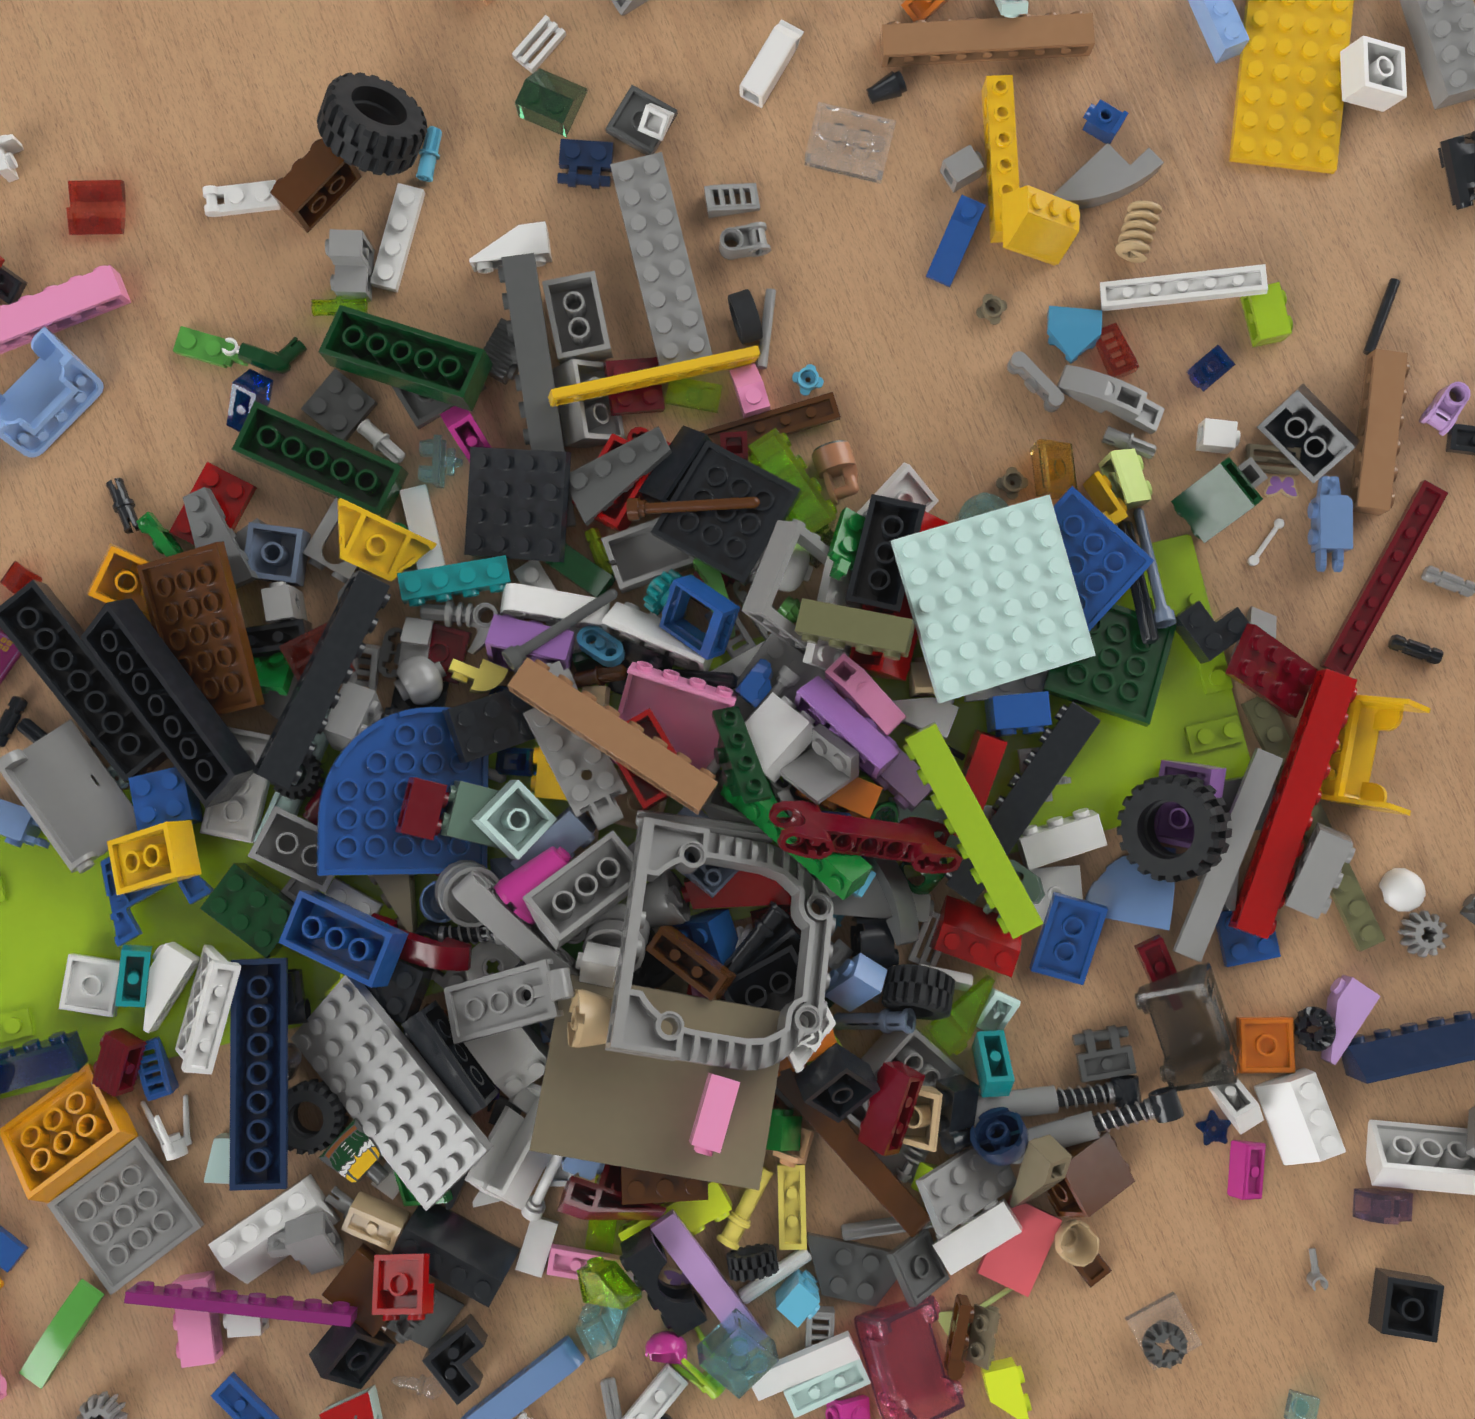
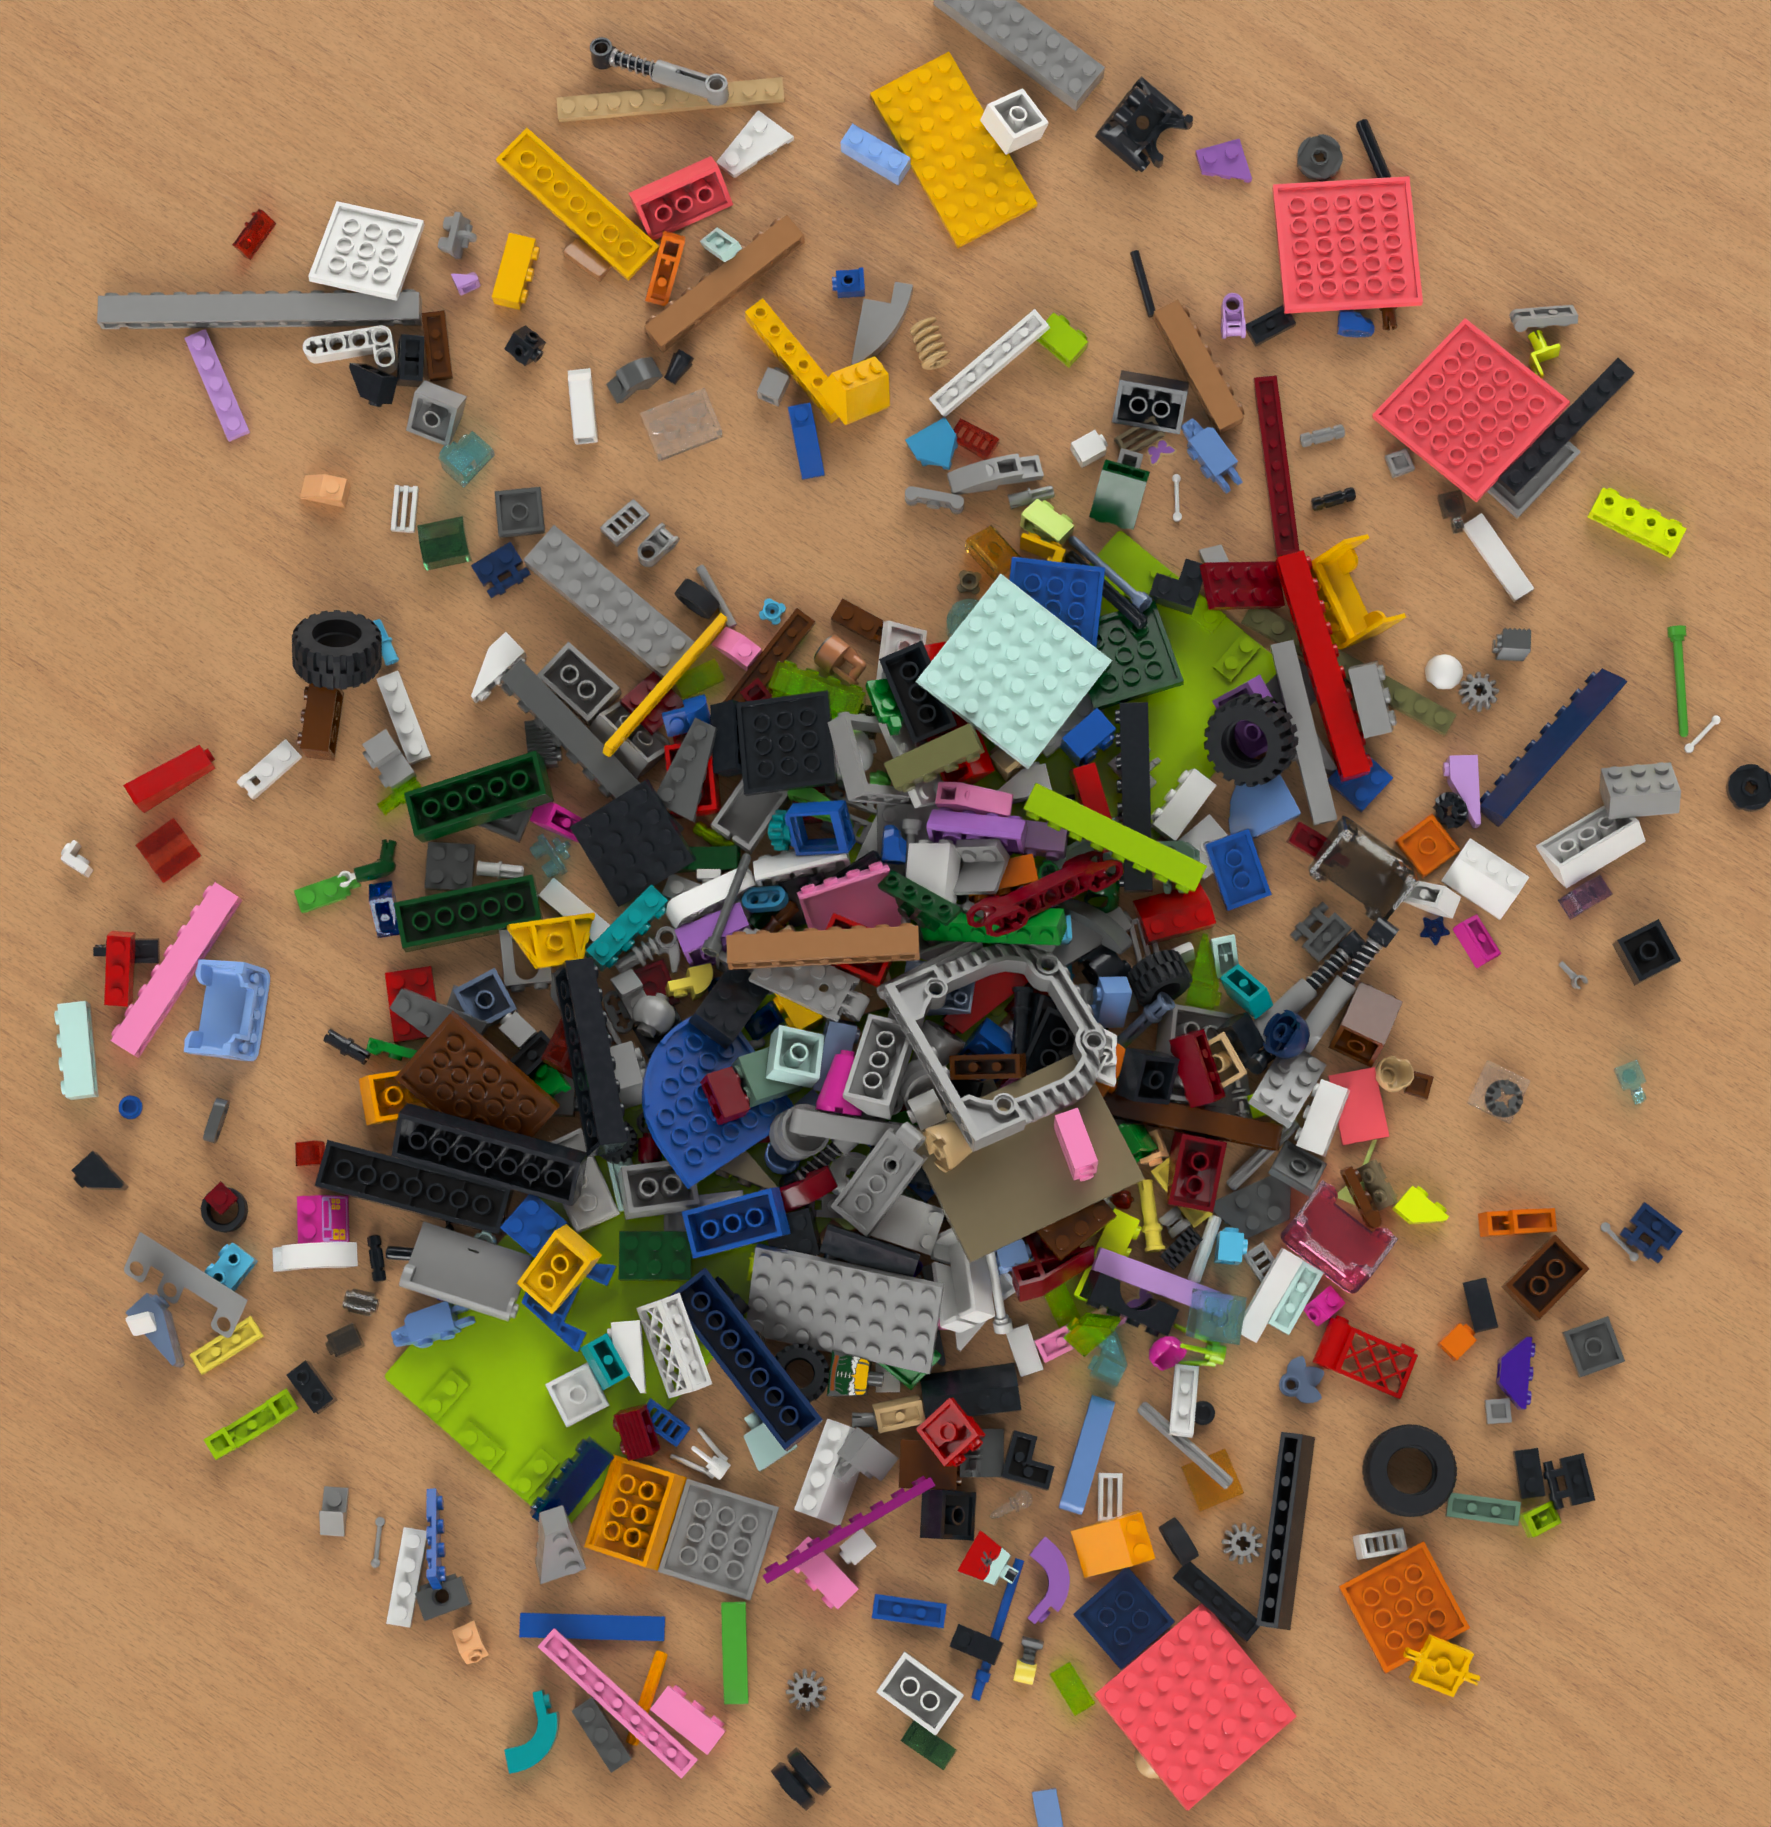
camera: 35 degrees left, 5 degrees down
(138, 139) = (169, 778): none -> red slope
(567, 585) = (706, 875): none -> white plate
(627, 35) = (466, 458): none -> clear light blue brick
(639, 508) = (725, 783): reddish brown piece -> none
(643, 418) = (681, 719): none -> blue brick
(655, 121) = (532, 505): white slope -> none
(765, 1230) = (1171, 1217): none -> light grey wheel
(818, 1198) = (1194, 1171): none -> dark red slope
(837, 65) = (632, 377): none -> dark grey brick
(881, 445) = (858, 621): none -> reddish brown hinge
(995, 302) = (866, 464): dark tan plate -> none
(1041, 1168) = (1330, 1038): dark tan slope -> none
(1219, 363) = (1053, 396): clear blue brick -> none

